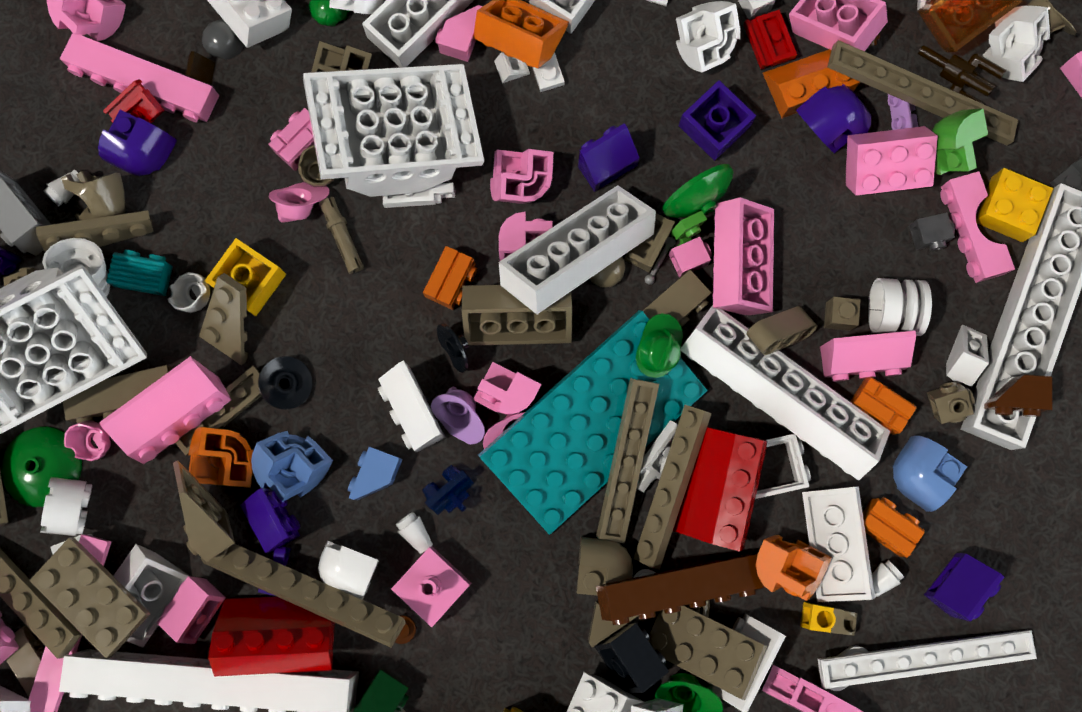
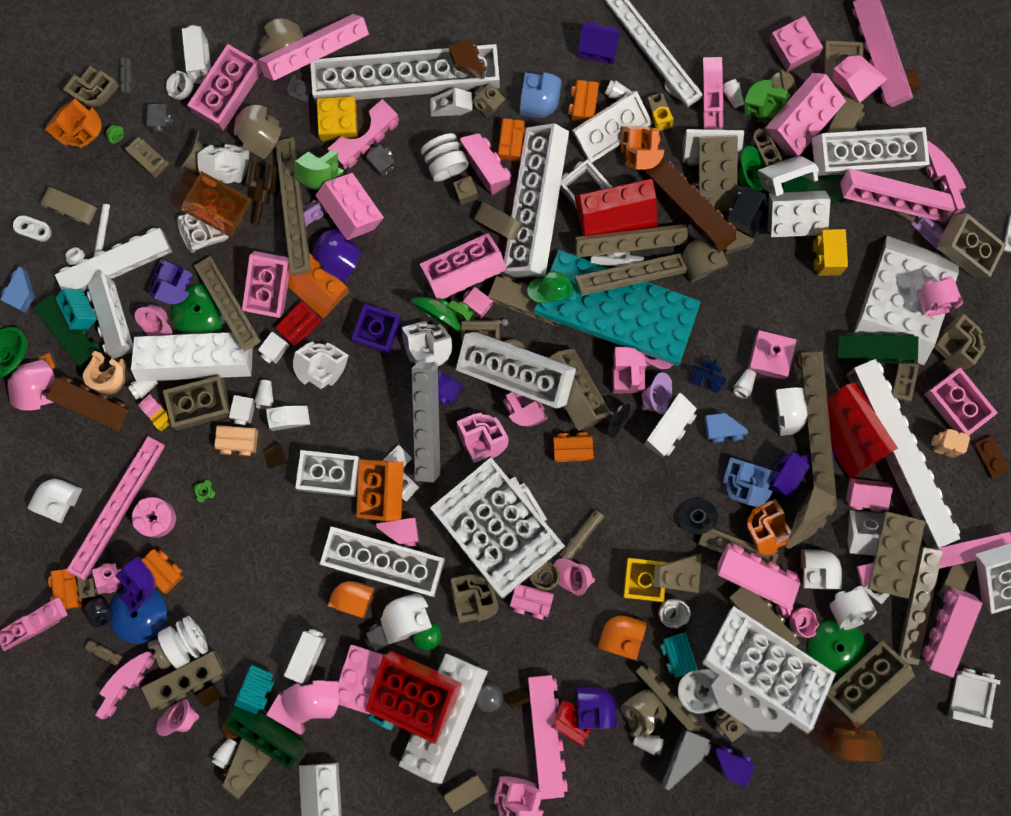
camera: 115 degrees left, 0 degrees up
(135, 496) = (821, 570): none -> white brick
(197, 218) = (622, 636): none -> orange brick
(572, 111) = (426, 421): none -> light grey brick
(667, 166) = (426, 343): none -> white brick
(1043, 100) = (257, 130): none -> dark tan brick

